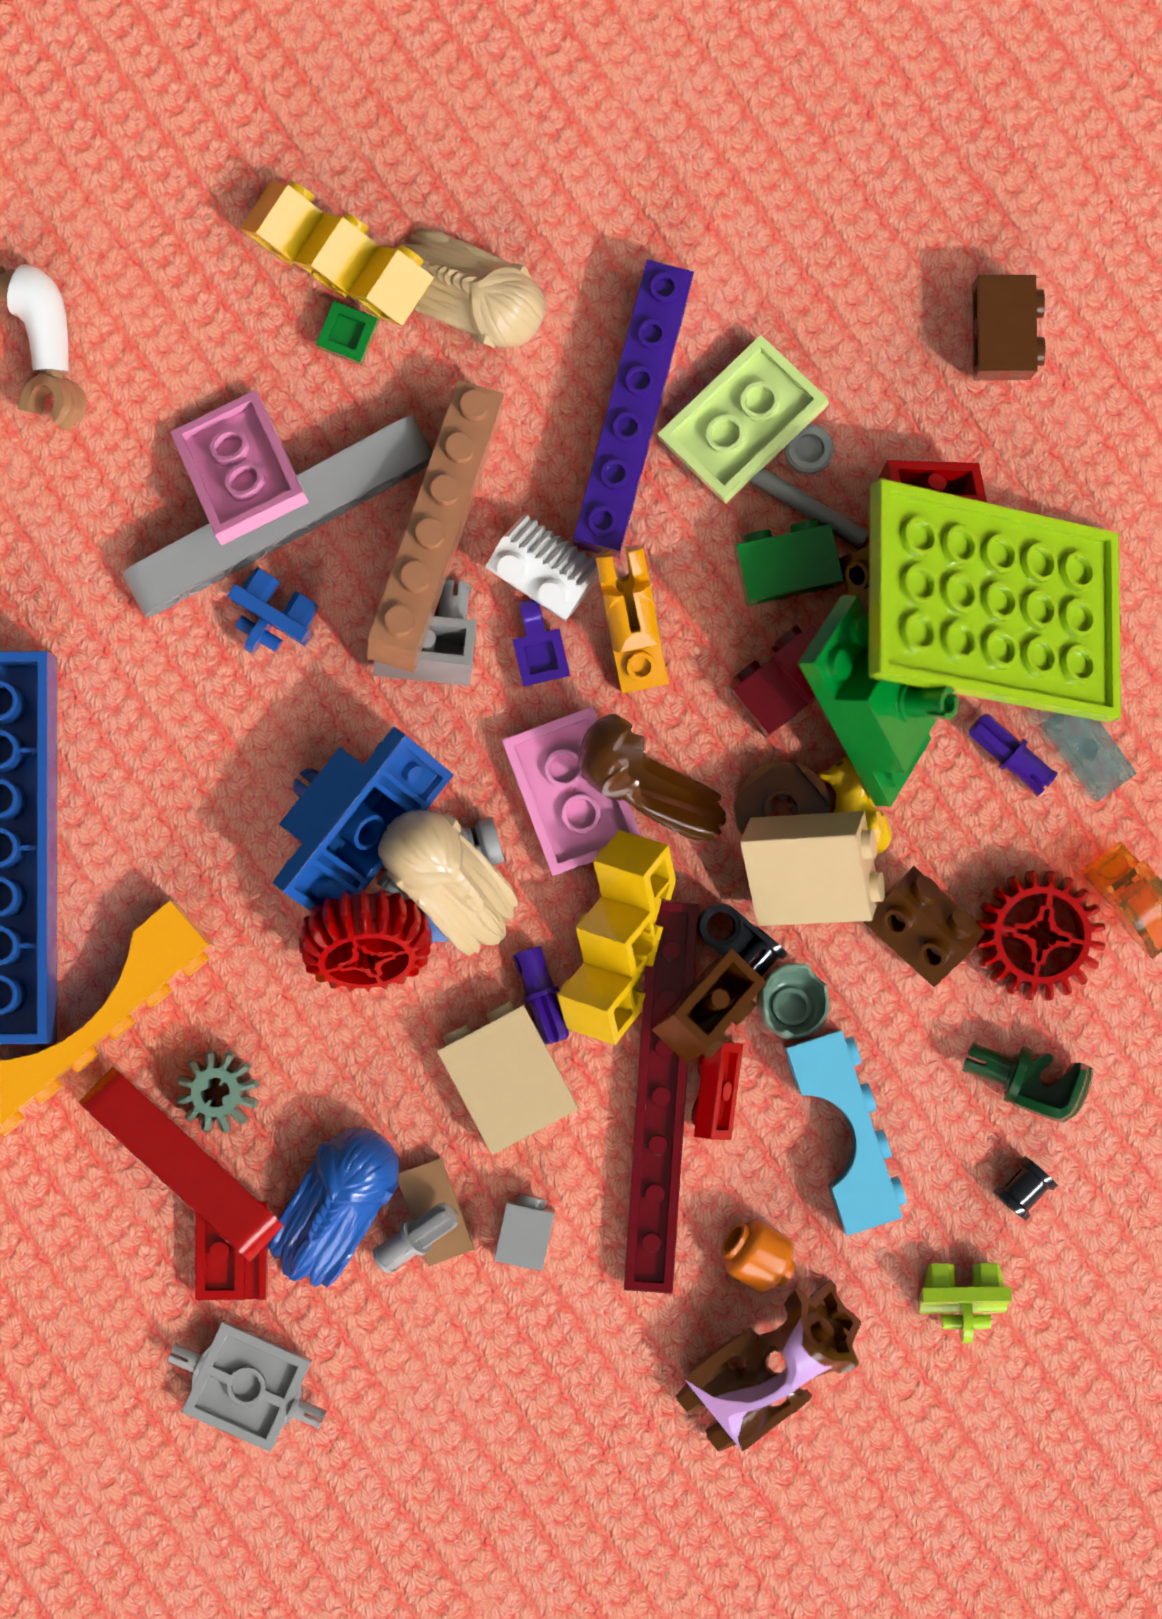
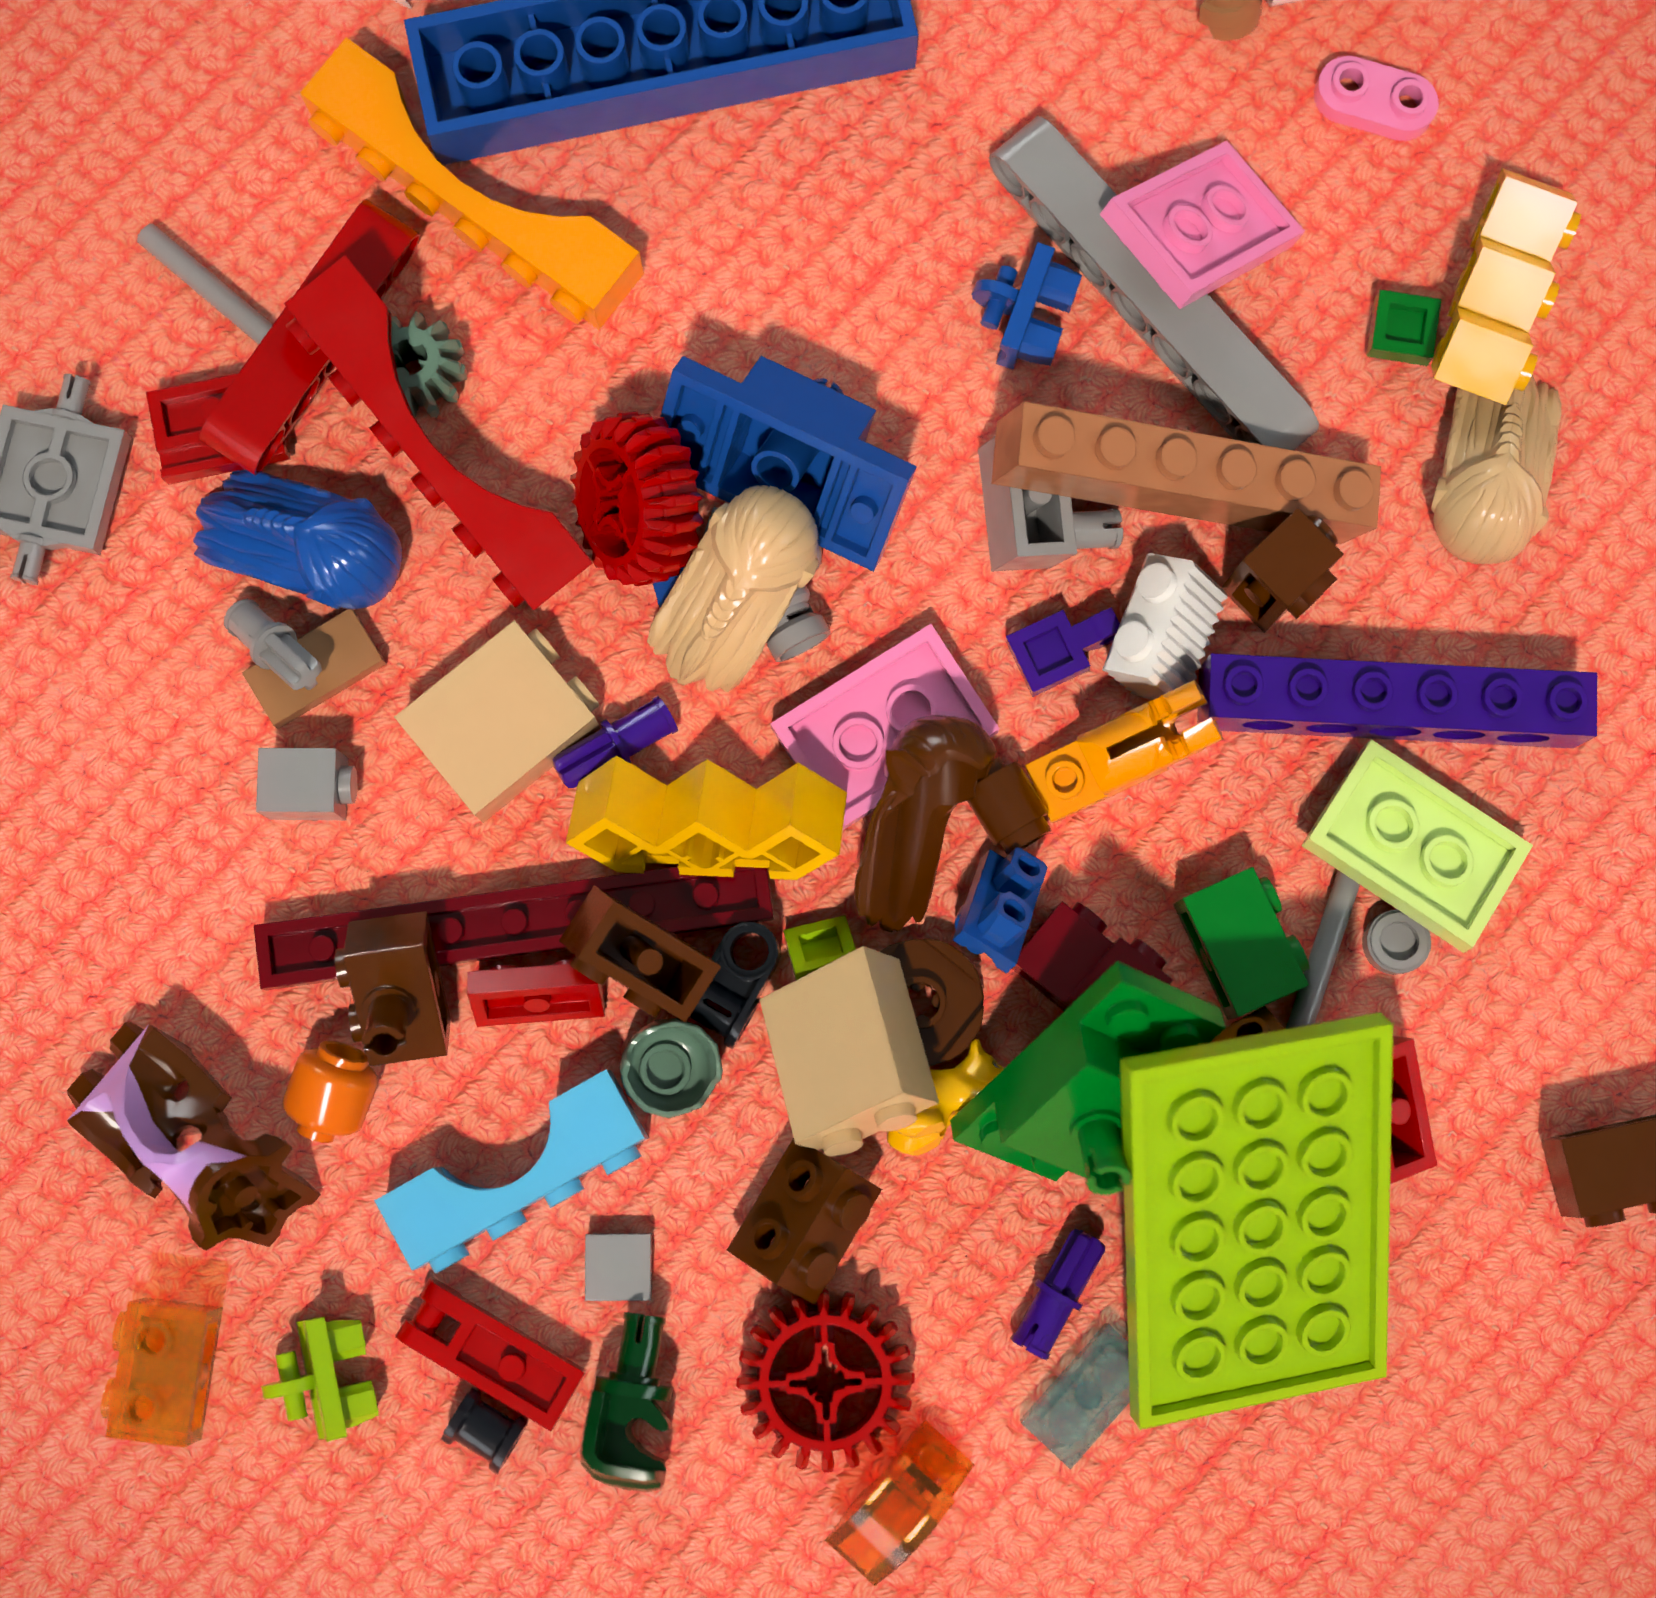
camera: 75 degrees right, 5 degrees down
(118, 1237) = (204, 282): none -> light grey bar
(160, 308) = (1376, 102): none -> bright pink plate
(196, 1127) = (355, 333): none -> red arch
(521, 468) = (1285, 570): none -> reddish brown brick
(653, 711) = (1009, 807): none -> reddish brown brick
(696, 1191) = (394, 988): none -> reddish brown brick
(726, 735) = (1000, 906): none -> blue hips
(726, 874) = (817, 944): none -> lime plate
(927, 1069) = (618, 1267): none -> light grey tile
(936, 1415) = (161, 1371): none -> clear yellow brick
(972, 1173) = (492, 1355): none -> red plate

